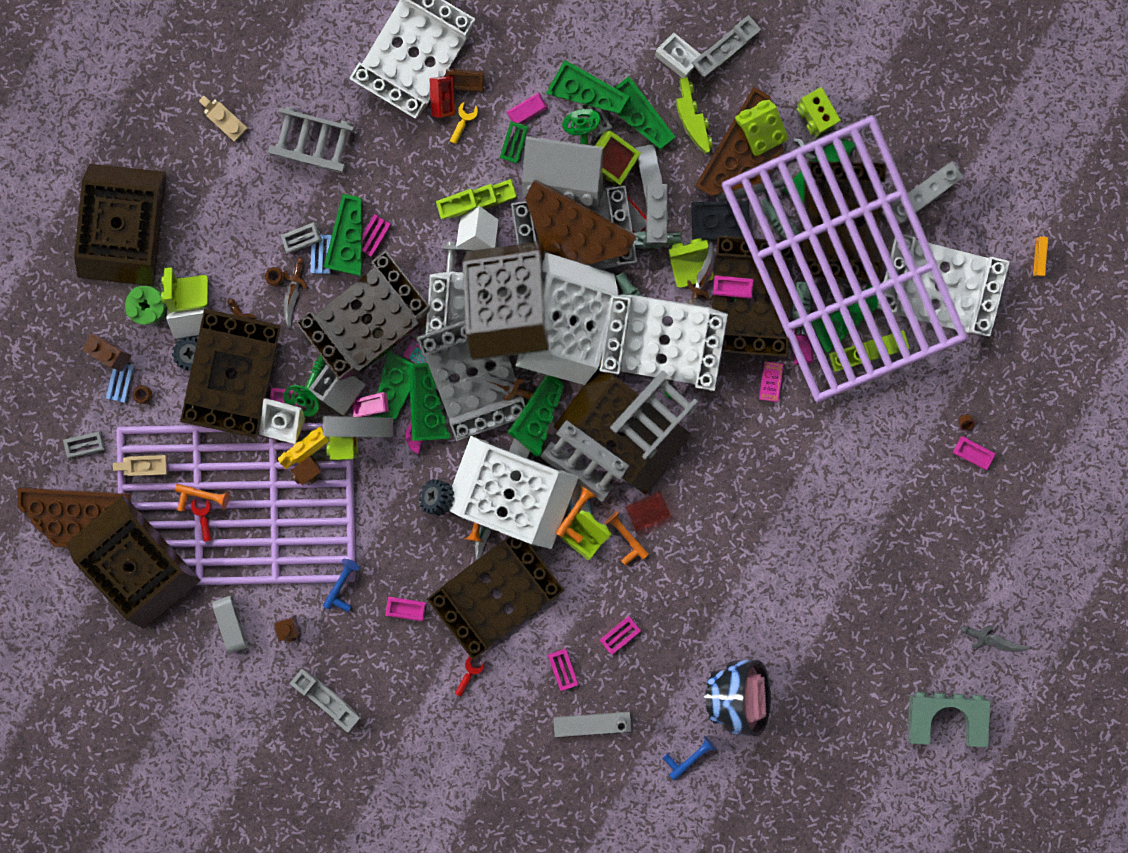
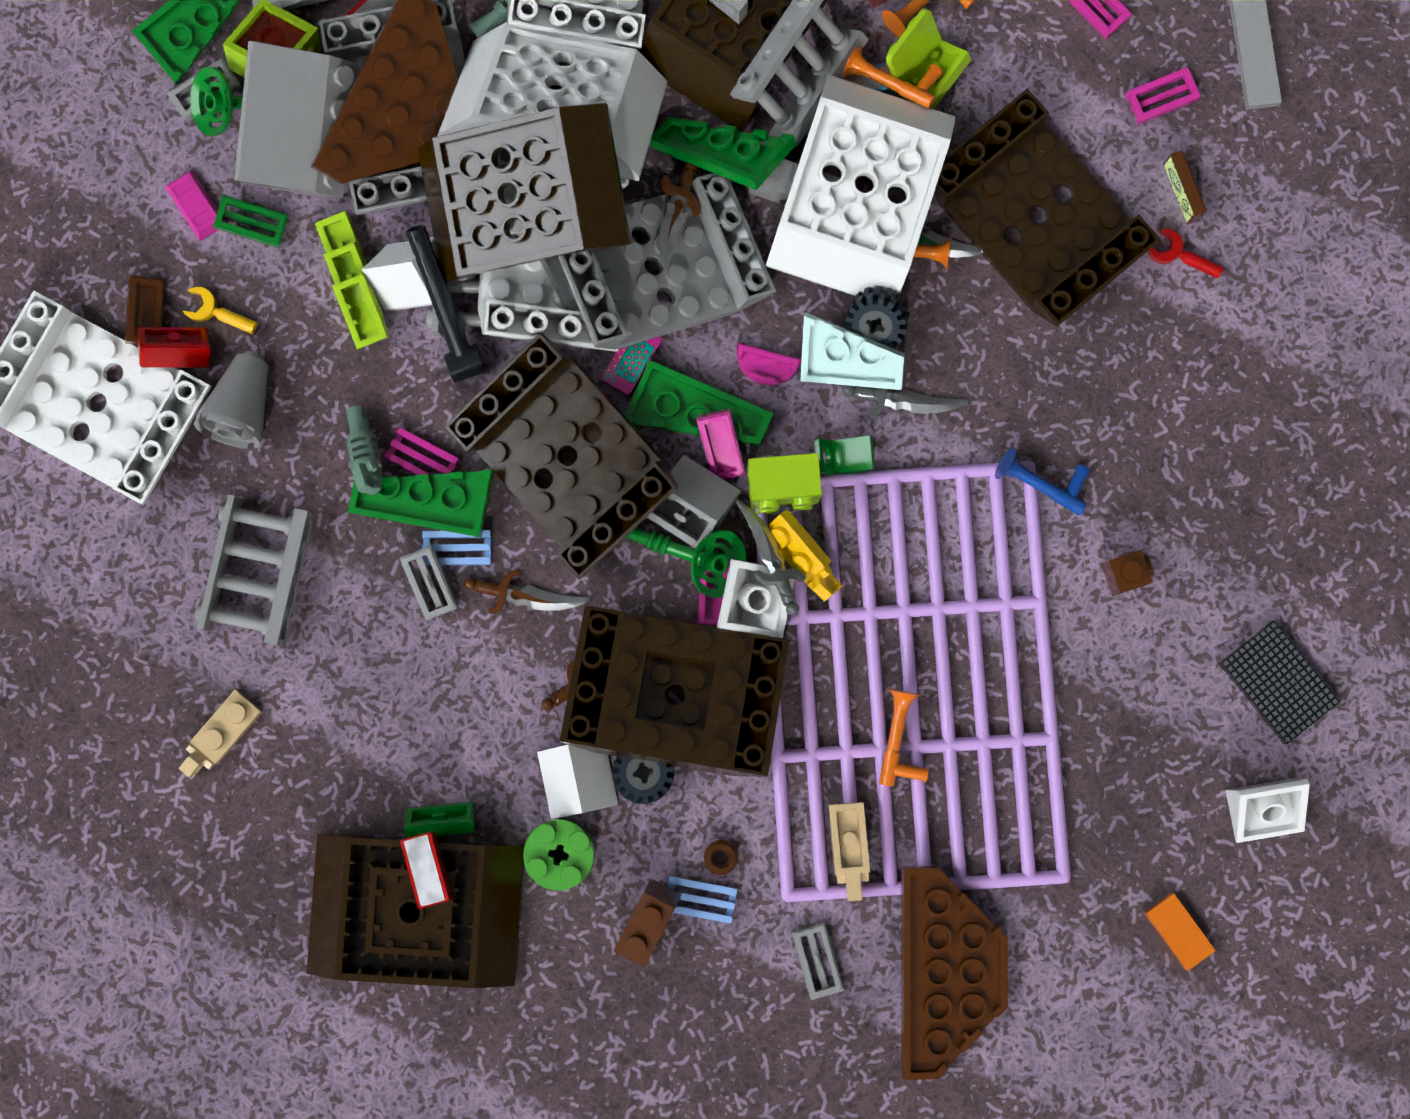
camera: 90 degrees left, 5 degrees down
(90, 644) = (1179, 931): none -> orange tile
(126, 536) = (983, 870): dark brown slope -> none
(137, 232) = (426, 870): none -> flat silver slope
(155, 697) = (1268, 809): none -> white slope
(168, 243) = (444, 819): none -> green tile
(184, 293) = (533, 783): lime bracket -> none
(203, 521) = (942, 732): red piece -> none
(224, 709) = (1279, 682): none -> black tile
(229, 625) = (1126, 677): light grey beam -> none
(268, 276) = (488, 628): reddish brown plate -> none
(300, 431) = (770, 556): none -> piece
(306, 471) = (845, 548): reddish brown brick -> none
(326, 699) = (1249, 498): light grey slope -> none
(357, 426) = (760, 453): light grey slope -> none
(361, 475) = (845, 455): none -> green bracket
(375, 203) = (363, 452): none -> sand green hinge
(393, 509) = (902, 399): none -> piece
(405, 608) = (1076, 369): dark pink tile -> none
(408, 133) = (237, 403): none -> light grey cone
(415, 479) = (847, 358): none -> light aqua wing
(426, 260) = (462, 360): none -> black piece
(426, 413) = (727, 346): green wing -> none
(506, 677) = (1185, 187): none -> reddish brown tile
(583, 88) = (155, 103): green wing -> none

